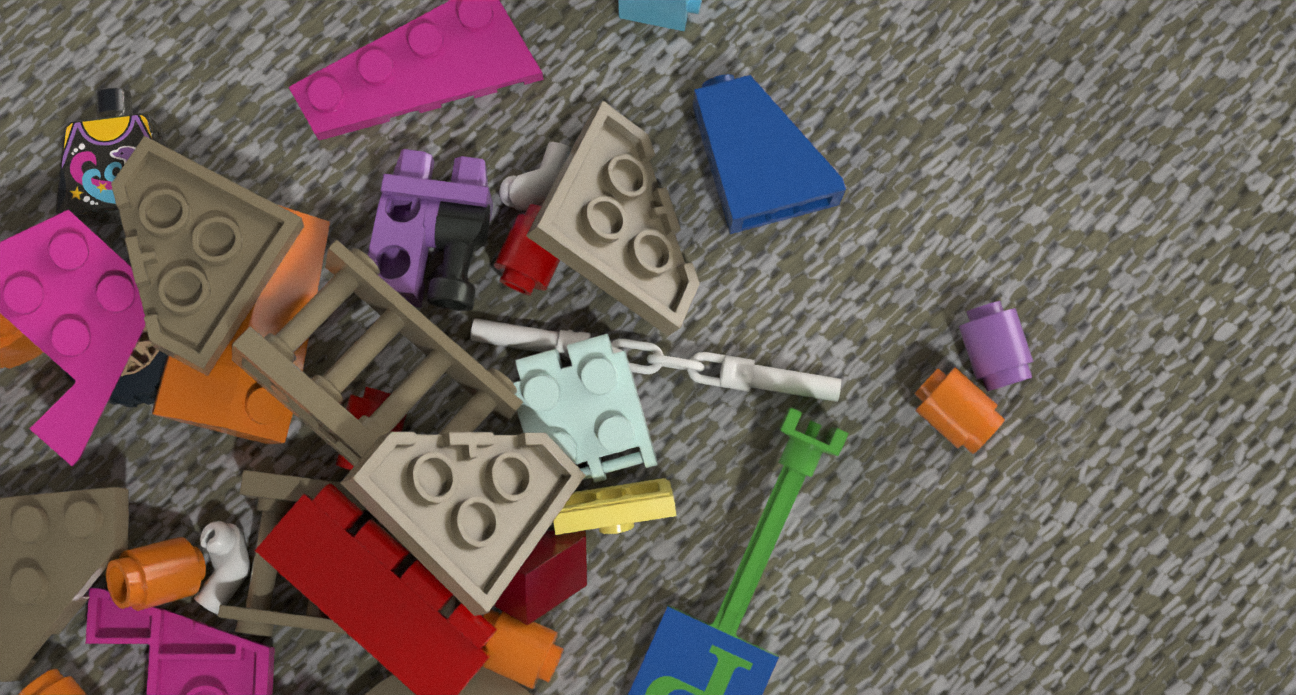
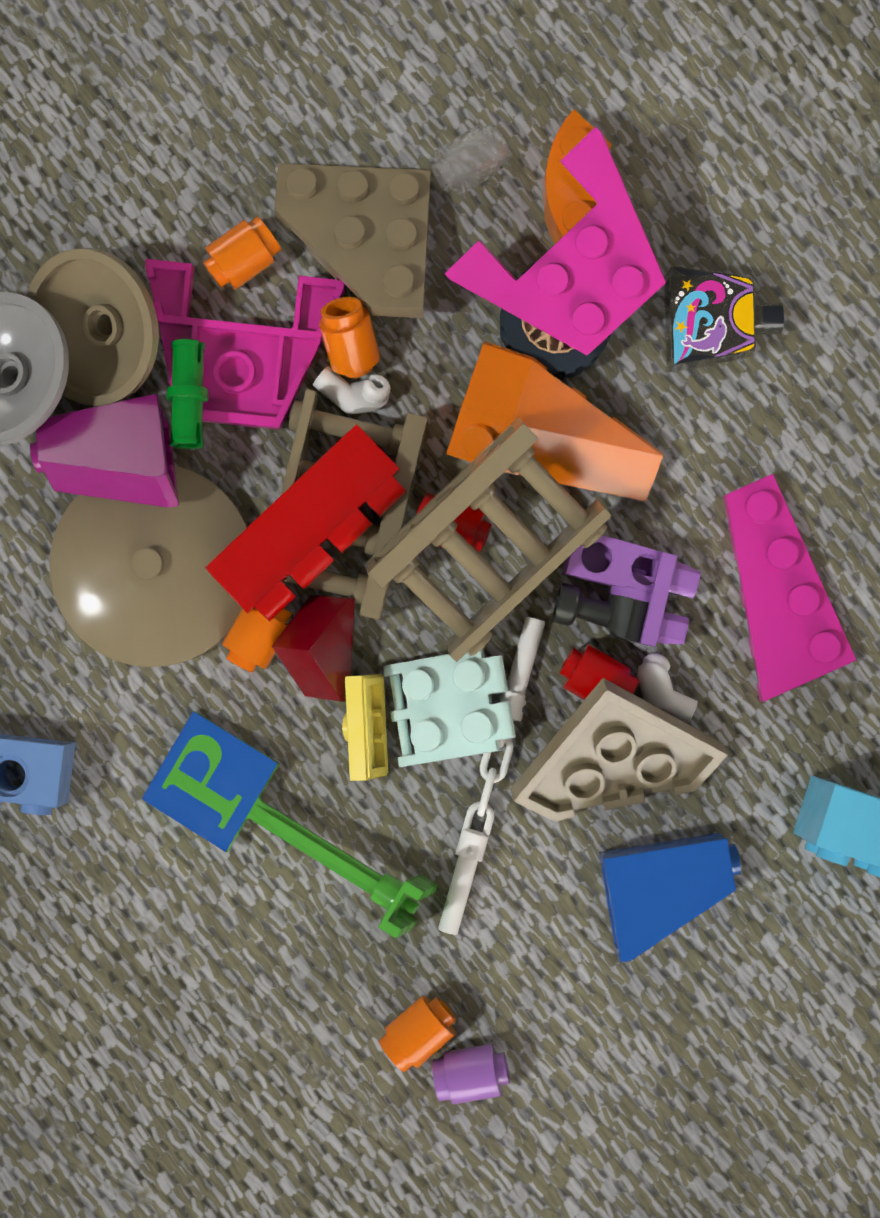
camera: 100 degrees right, 10 degrees up
(196, 250) = (621, 390): dark tan plate -> none
(466, 502) = (371, 609): plate -> none

